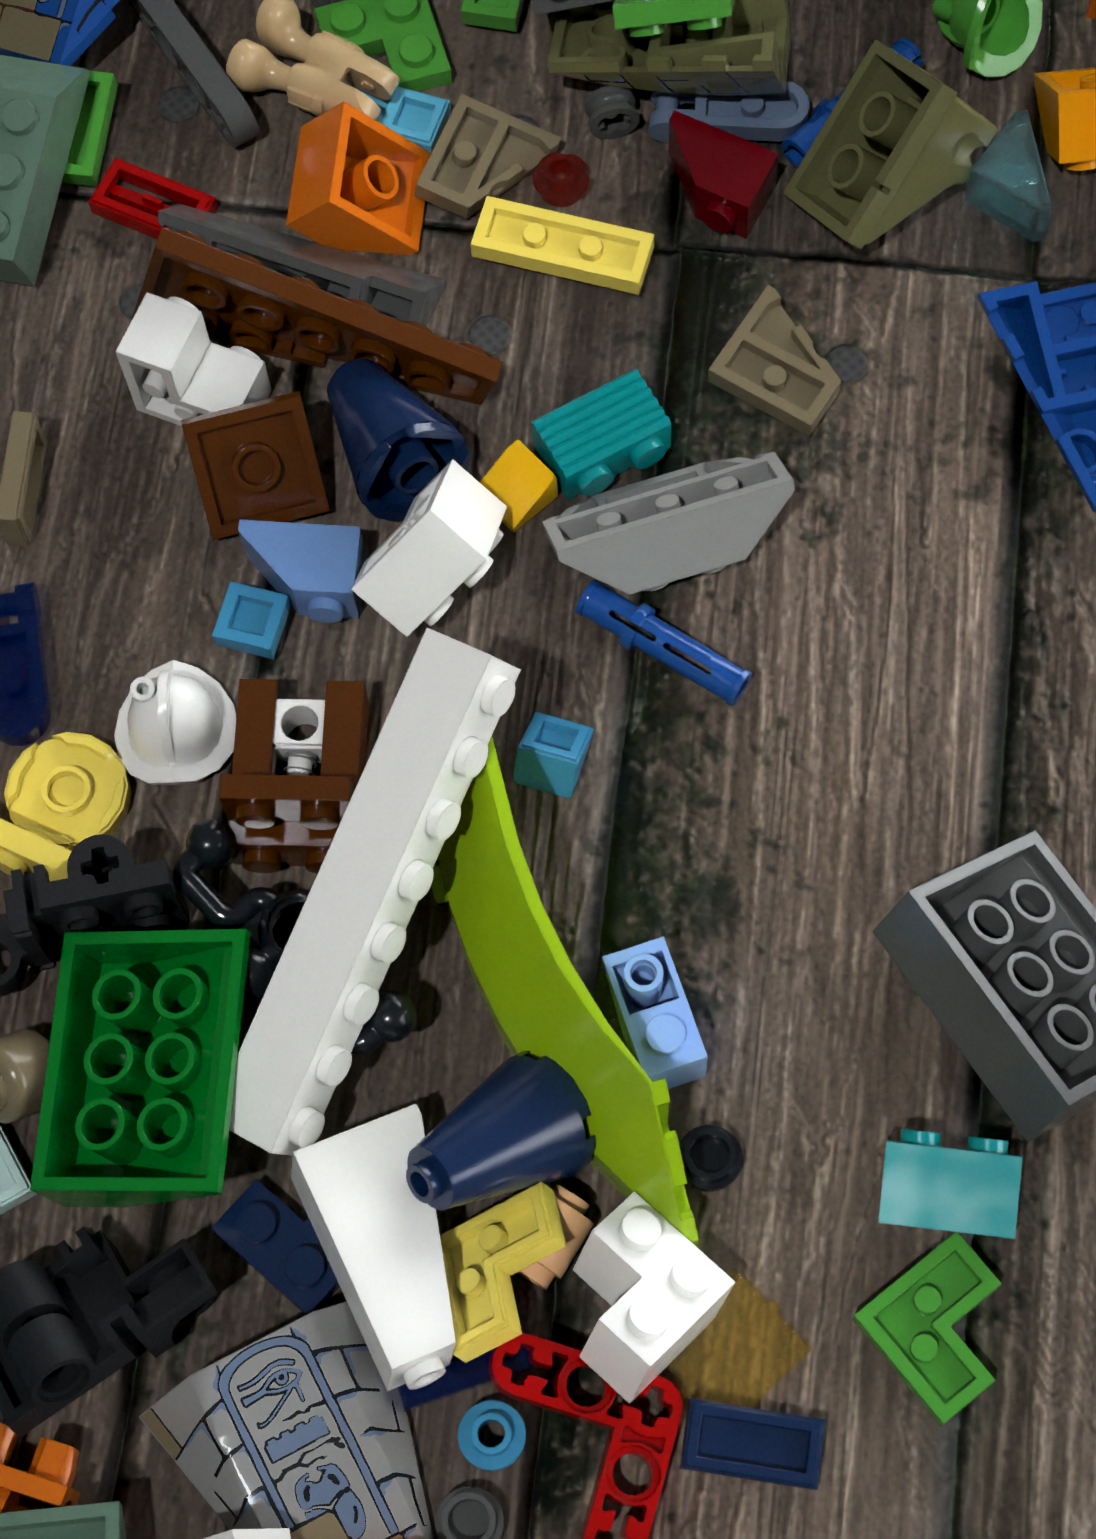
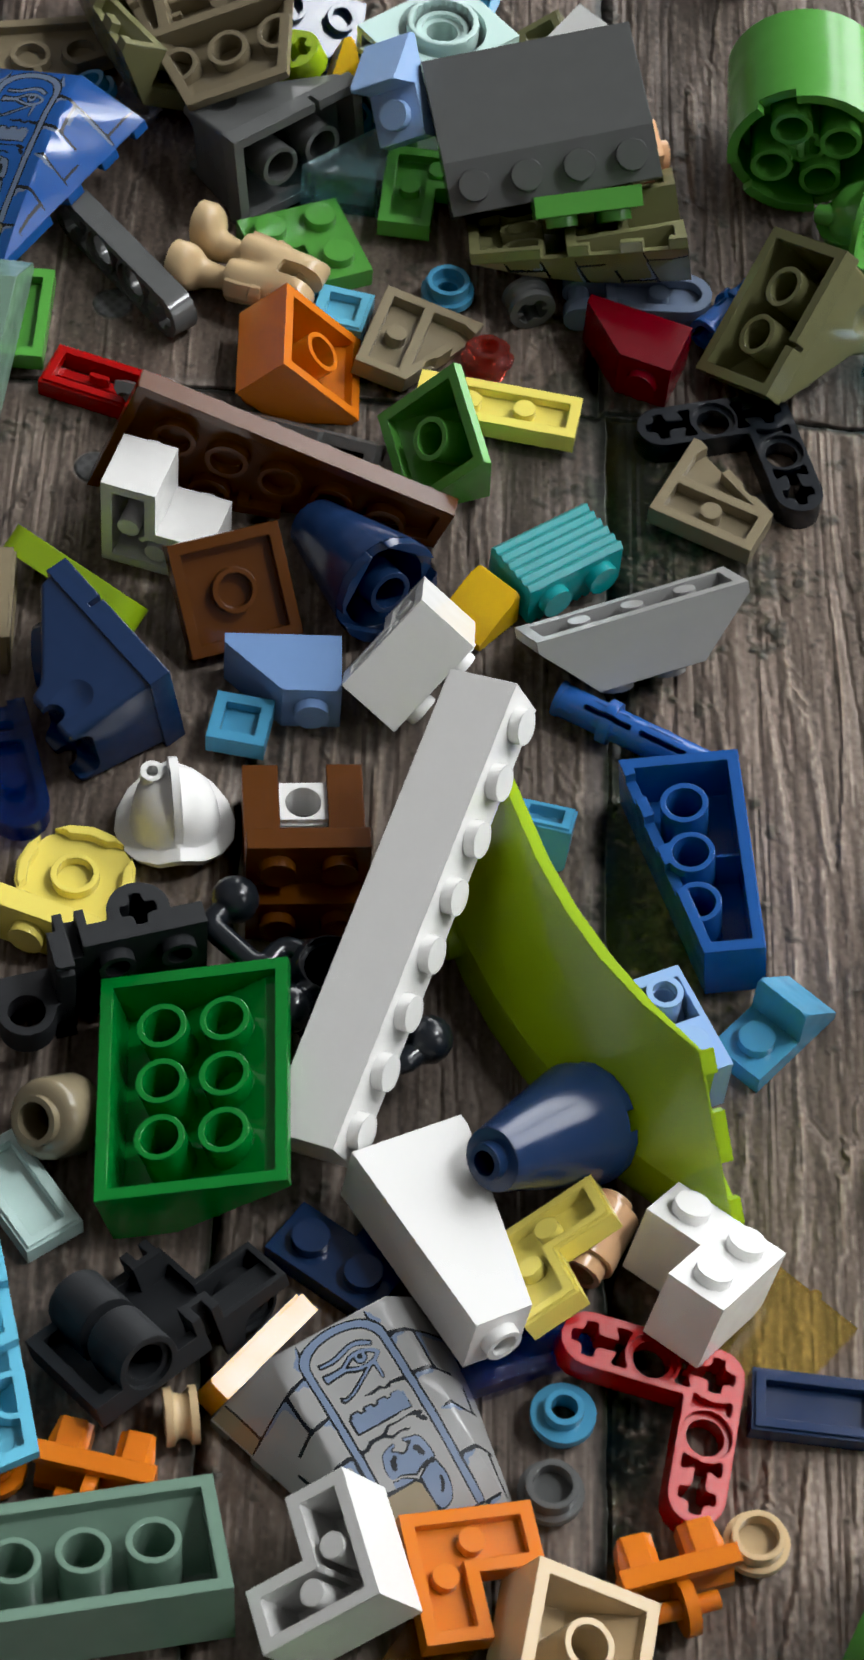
camera: 15 degrees left, 15 degrees down
(98, 571) = (97, 678): none -> dark blue piece
(100, 443) = (43, 556): none -> lime beam
(105, 1417) = (181, 1415): none -> tan bush
(186, 1354) = (255, 1353): none -> tile
(489, 289) = (438, 437): none -> bright green slope
(528, 82) = (448, 287): none -> dark azure plate
(711, 792) = (700, 852): none -> blue wedge
(711, 1158) = (750, 1167): black plate -> none
(765, 998) = (773, 1029): none -> dark azure slope
(838, 280) = (751, 427): none -> black beam

